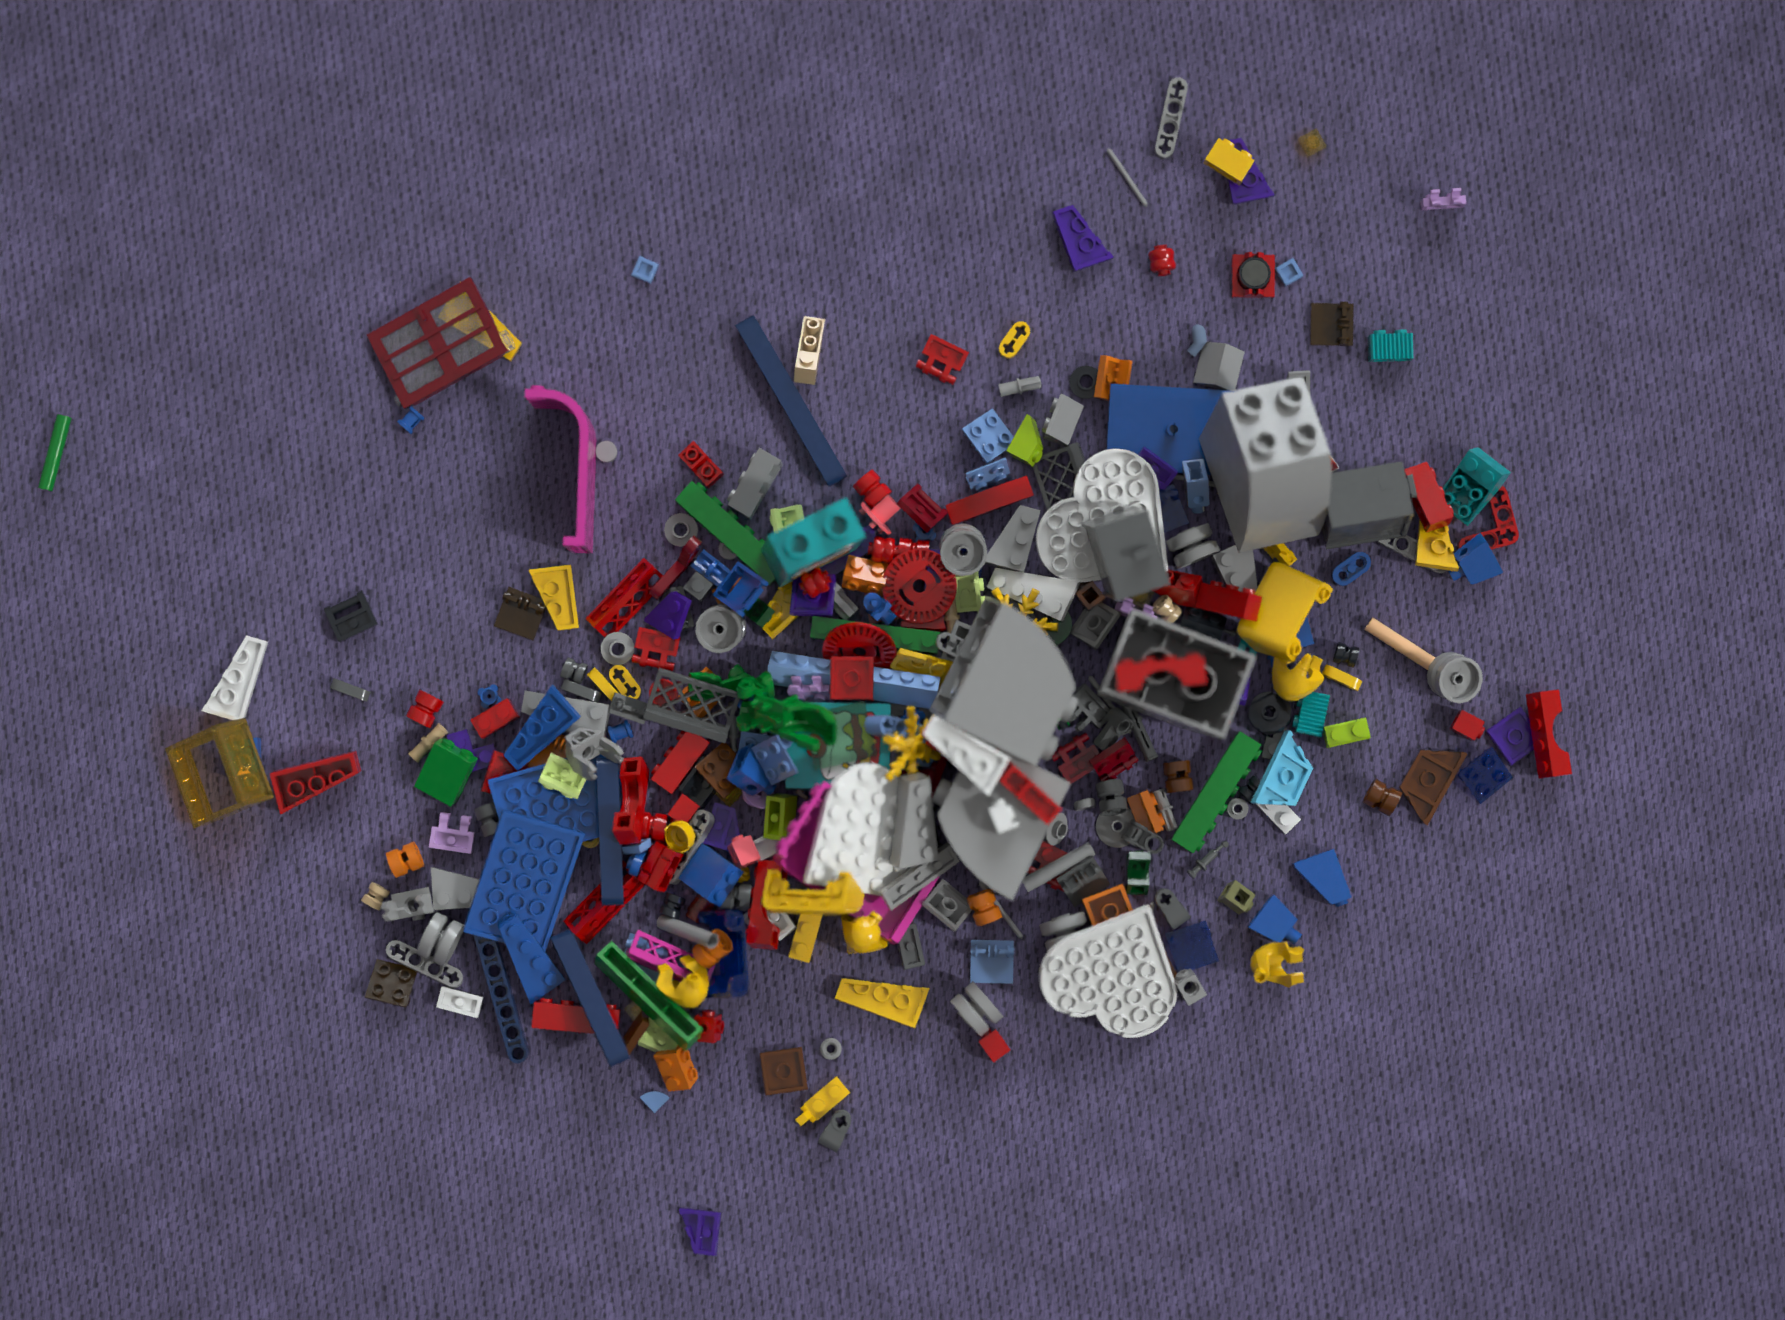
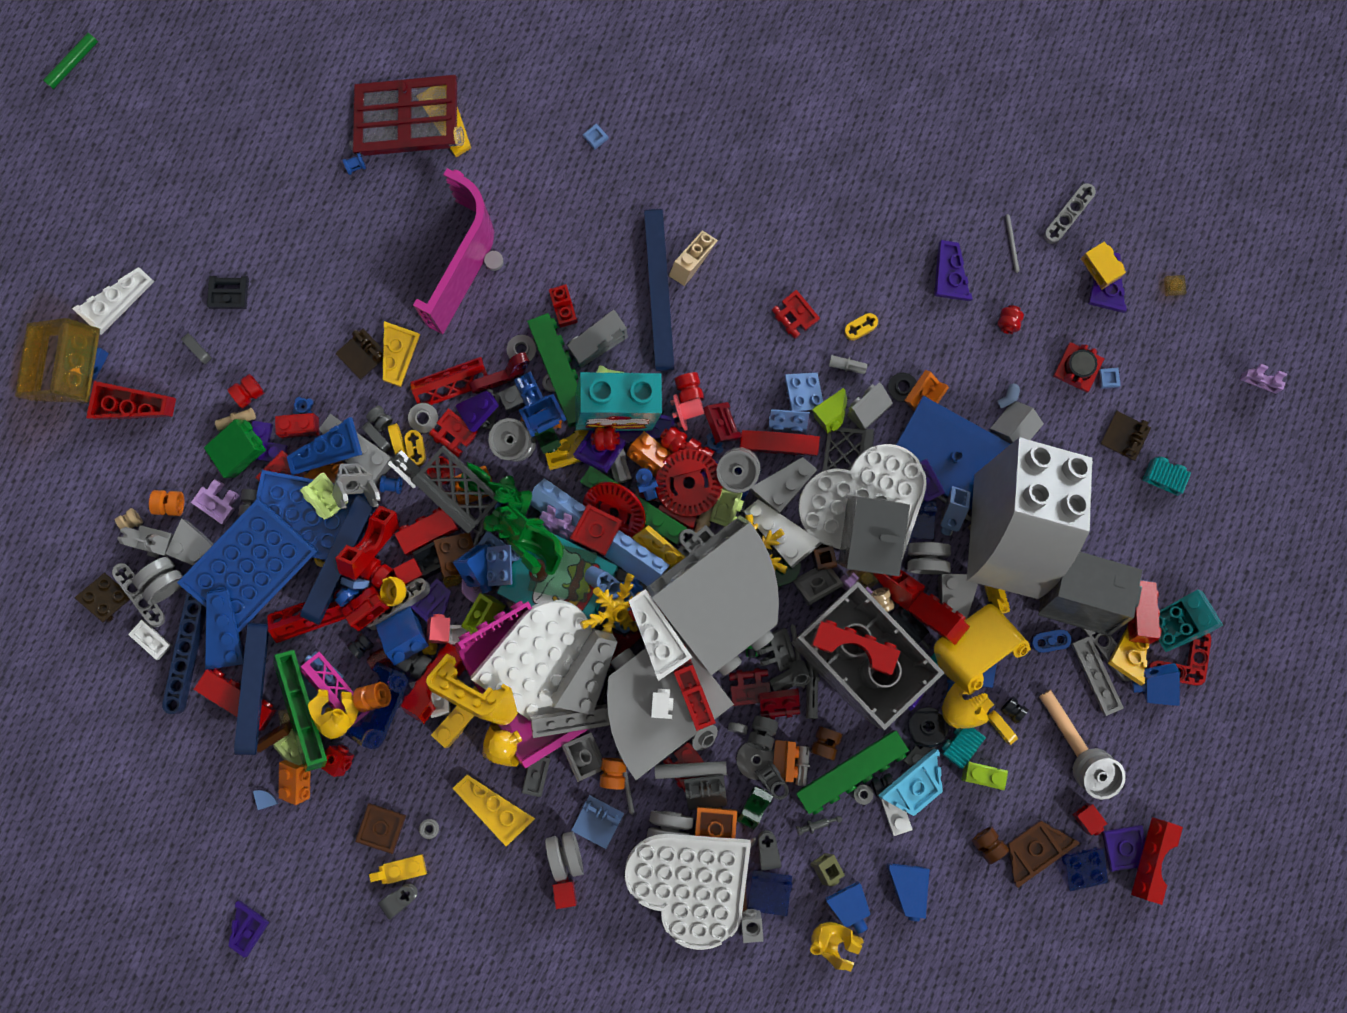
camera: 20 degrees right, 5 degrees down
(687, 931) = (358, 673): light grey piece -> none
(1411, 581) = (1097, 676): none -> light grey plate

